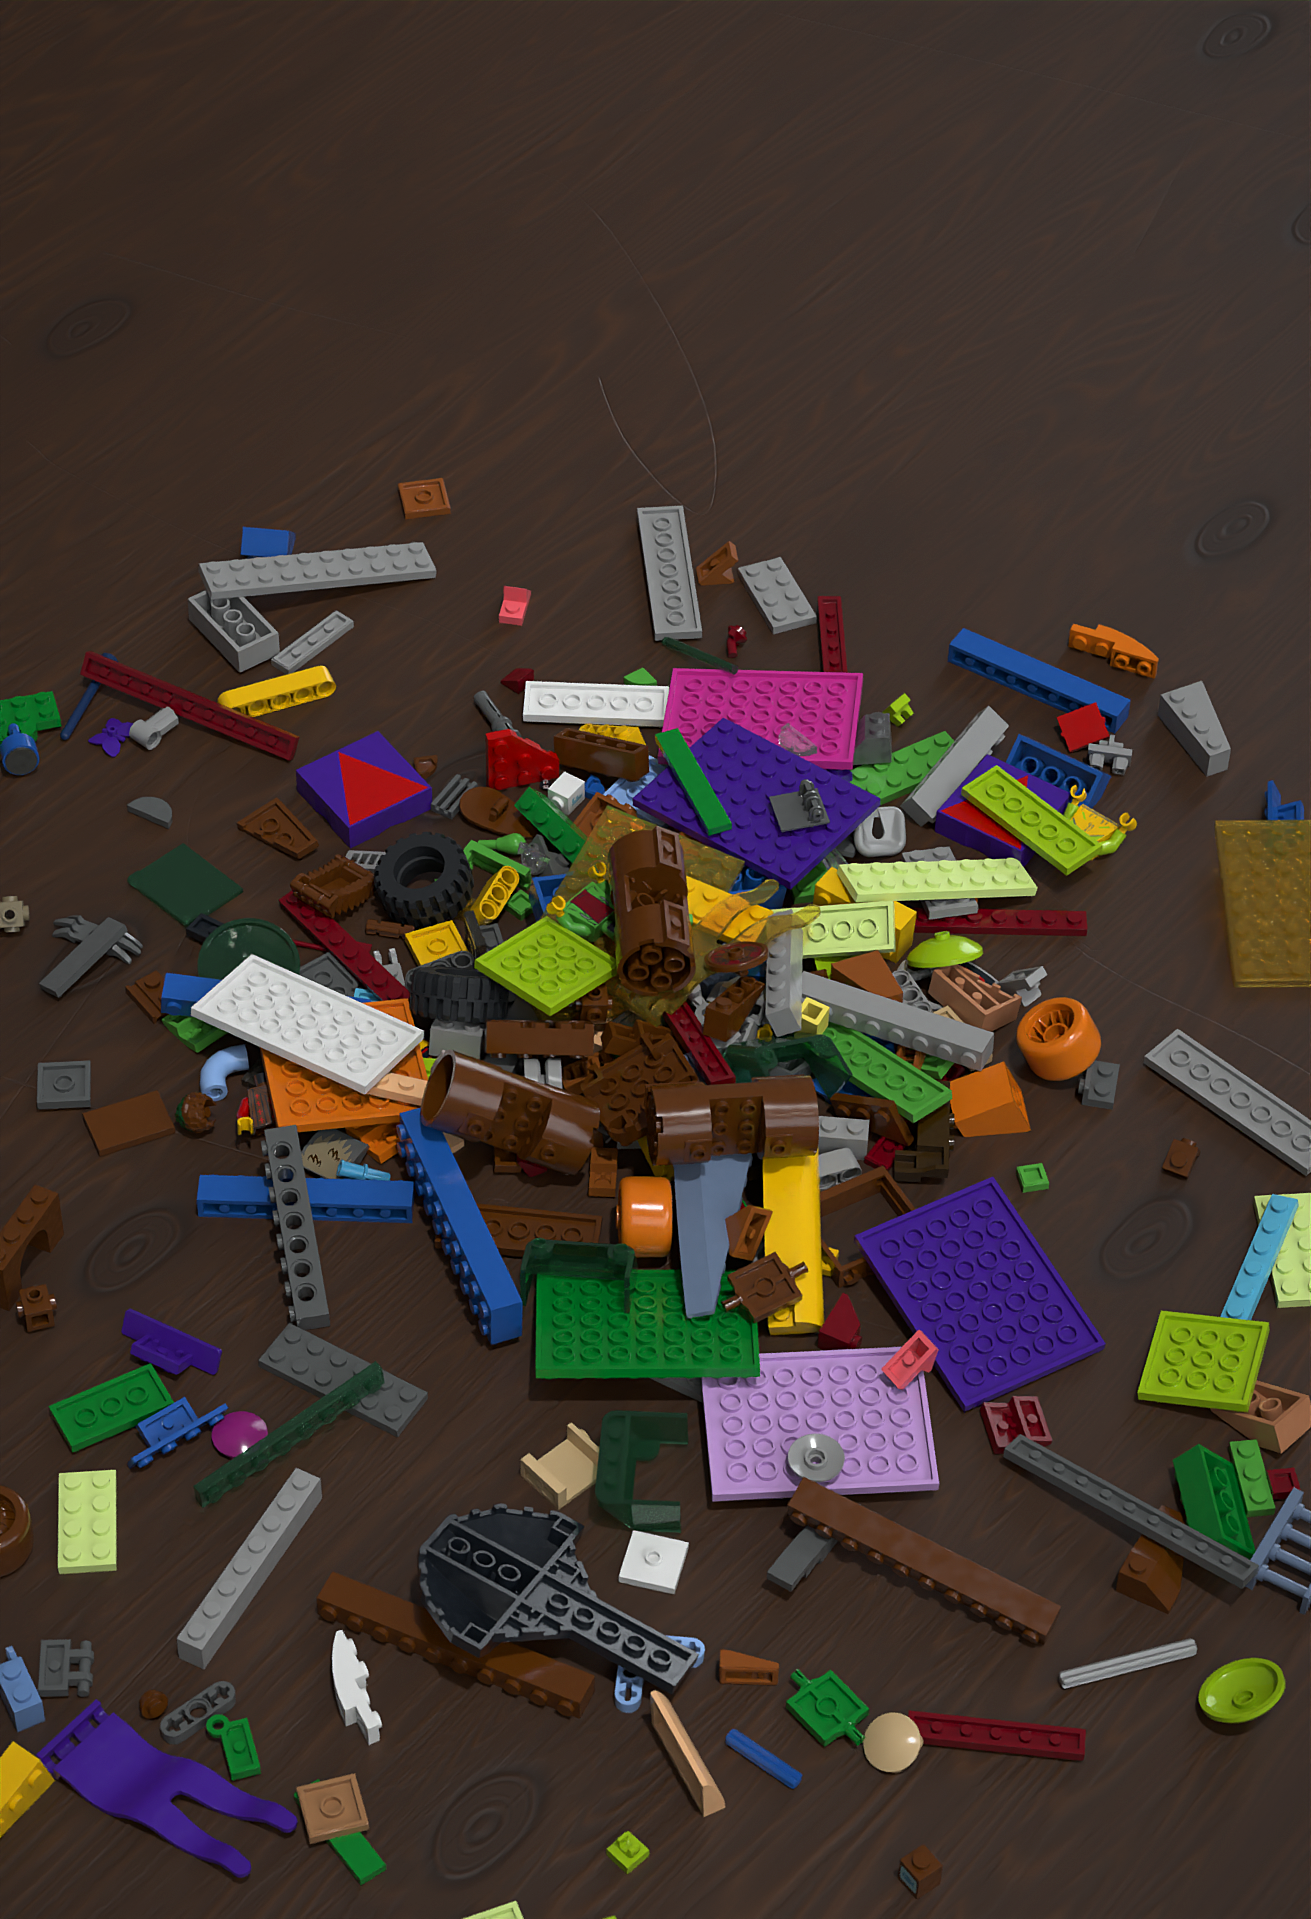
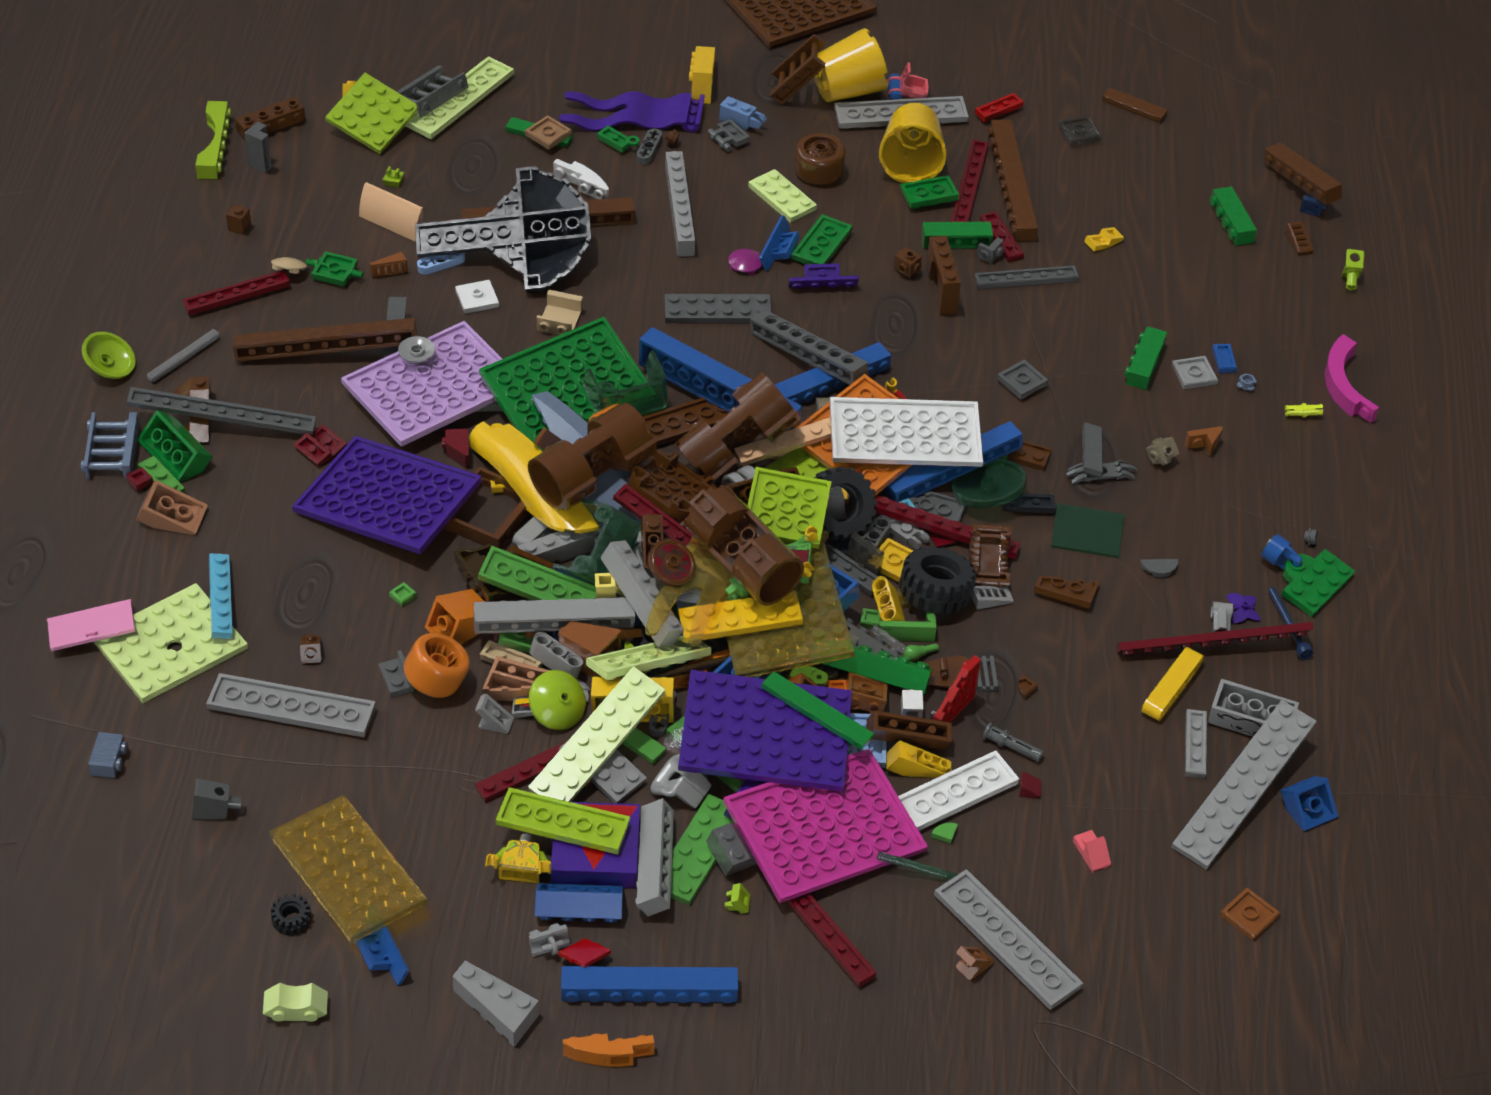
camera: 145 degrees right, 0 degrees up
(128, 1123) = (966, 379): reddish brown tile -> none
(193, 1111) = (930, 389): reddish brown piece -> none
(289, 1434) = (713, 263): clear green plate -> none
(360, 1172) = (809, 401): dark azure axle -> none
(364, 789) = (1043, 639): dark purple tile -> none
(633, 1438) = (519, 304): clear green windscreen -> none
(736, 636) = (907, 902): dark red plate -> none
(763, 1758) = (353, 238): blue axle -> none
(764, 1287) = (510, 416): reddish brown plate -> none
(777, 595) = (912, 967): light grey plate -> none
(796, 742) = (778, 795): clear tile -> none
(799, 808) = (723, 717): dark grey hinge -> none
(913, 1357) = (394, 419): coral slope -> none
(1204, 1361) = (223, 517): lime plate -> none

